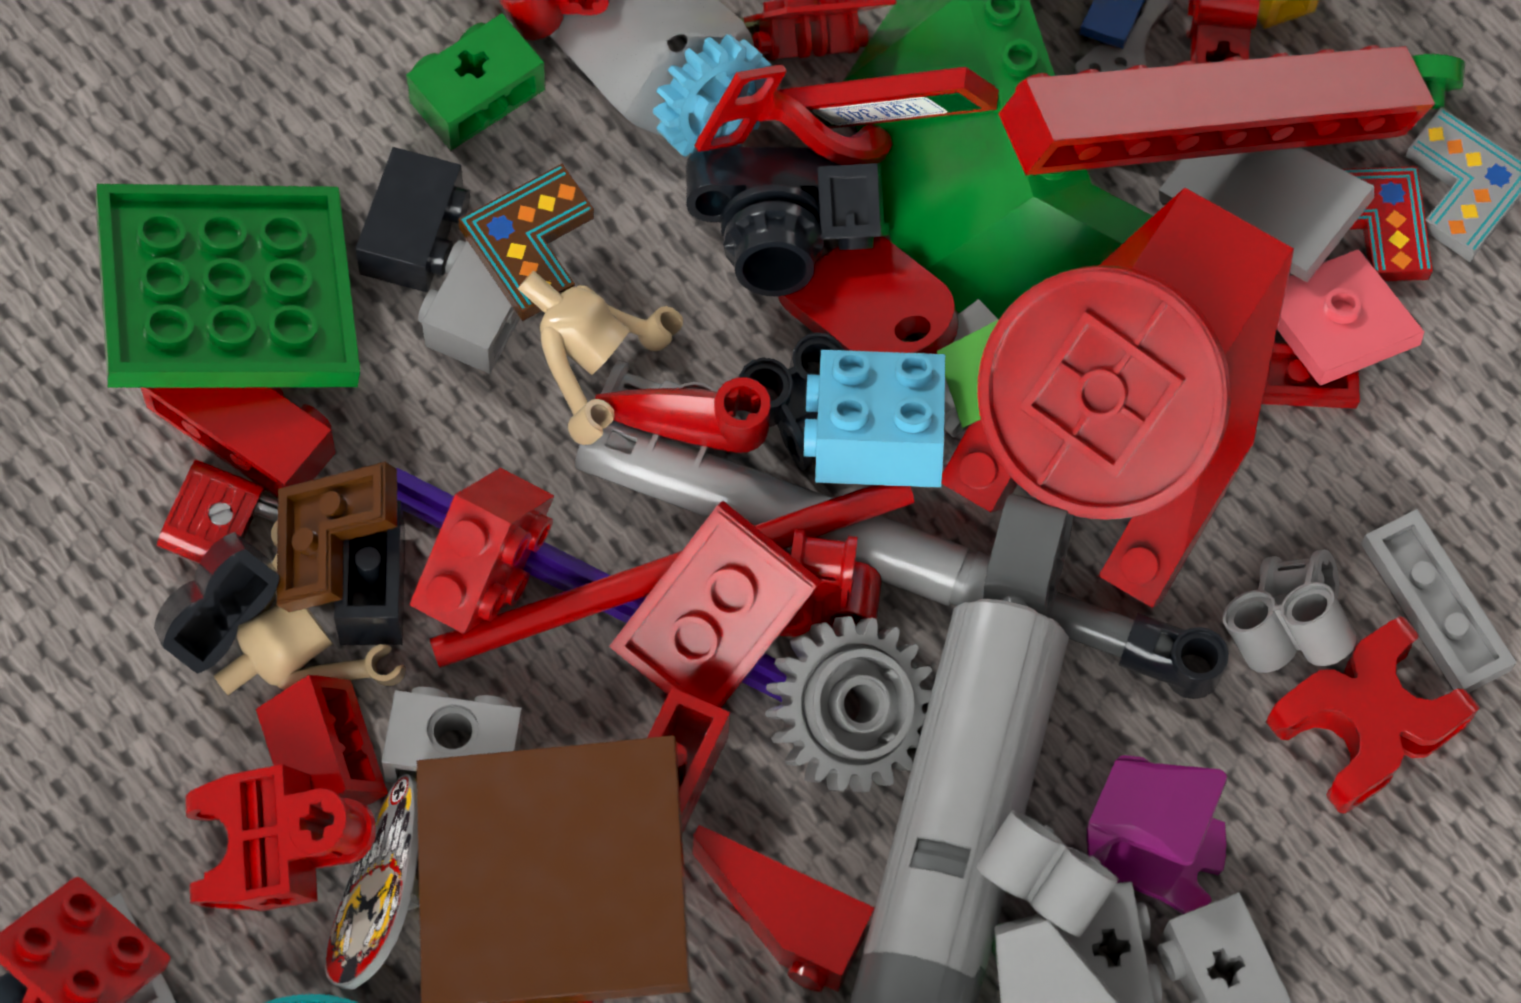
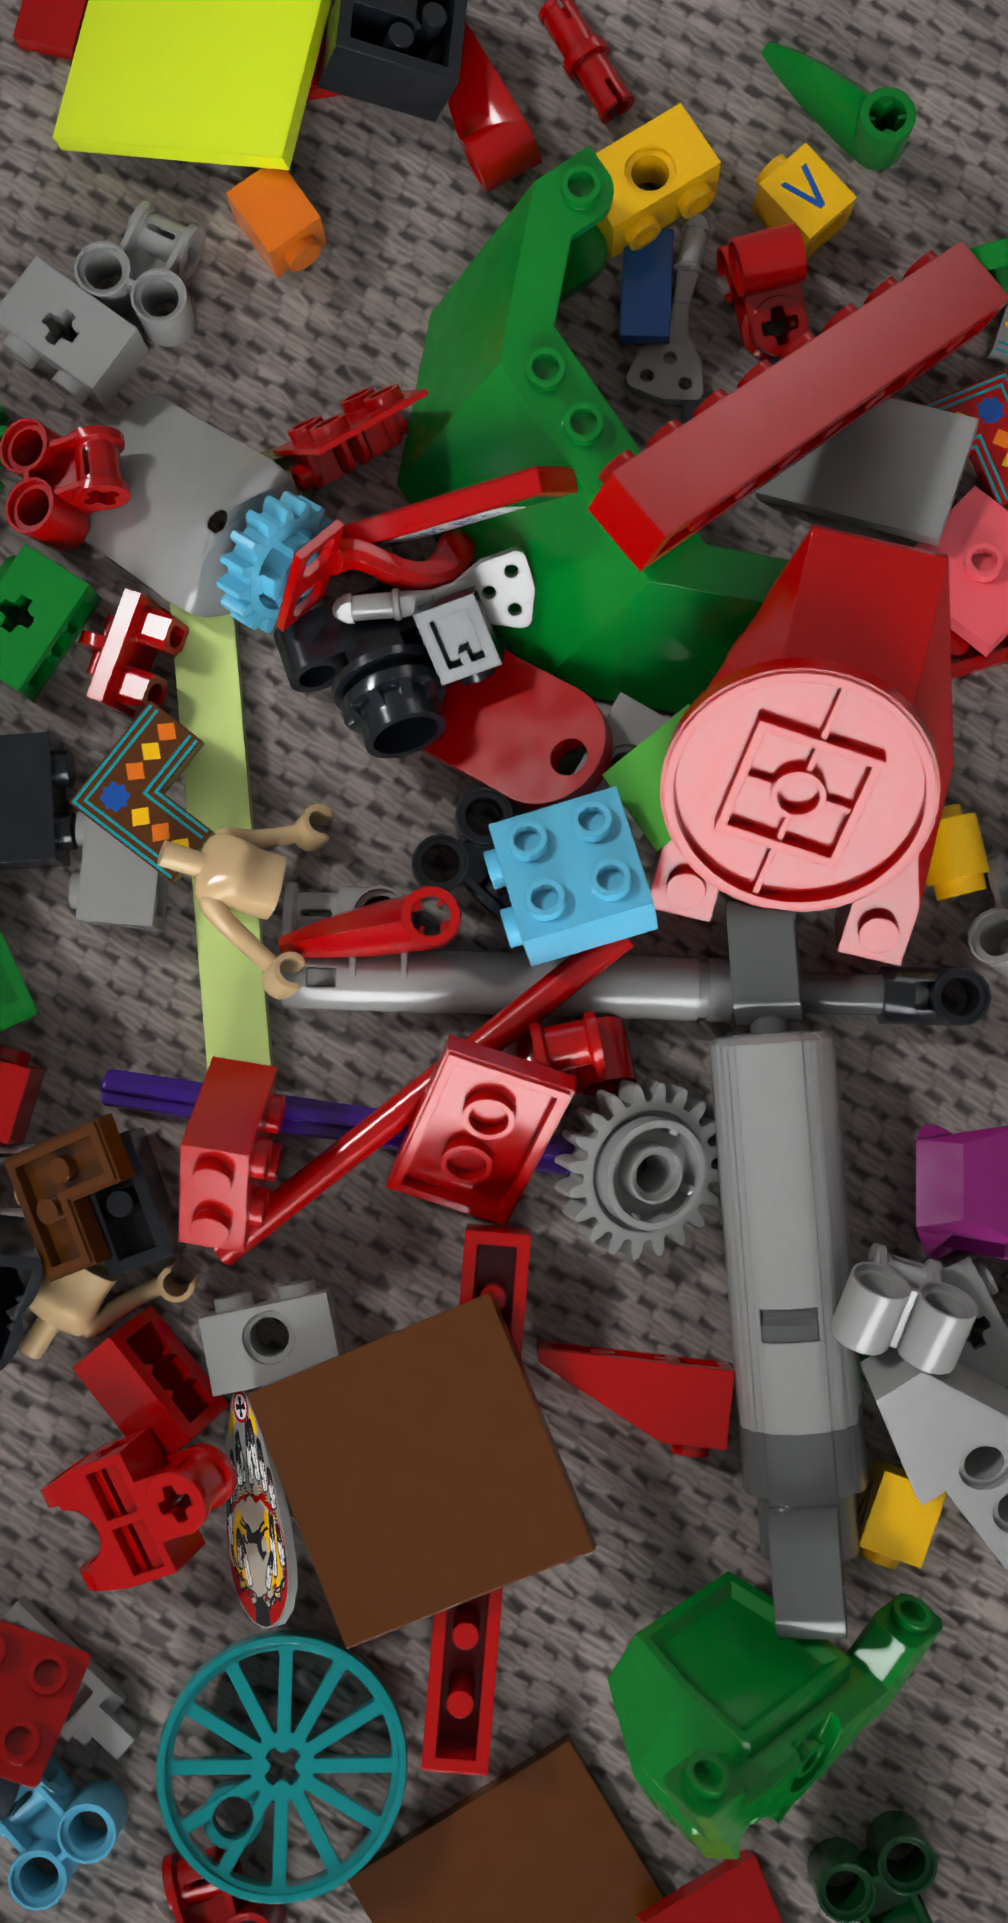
camera: 10 degrees left, 20 degrees up
(555, 129) = (127, 652): none -> red hips
(592, 258) = (219, 797): none -> yellowish green tile
(896, 161) = (487, 571): none -> light grey piece
(1236, 542) = (958, 855): none -> yellow brick

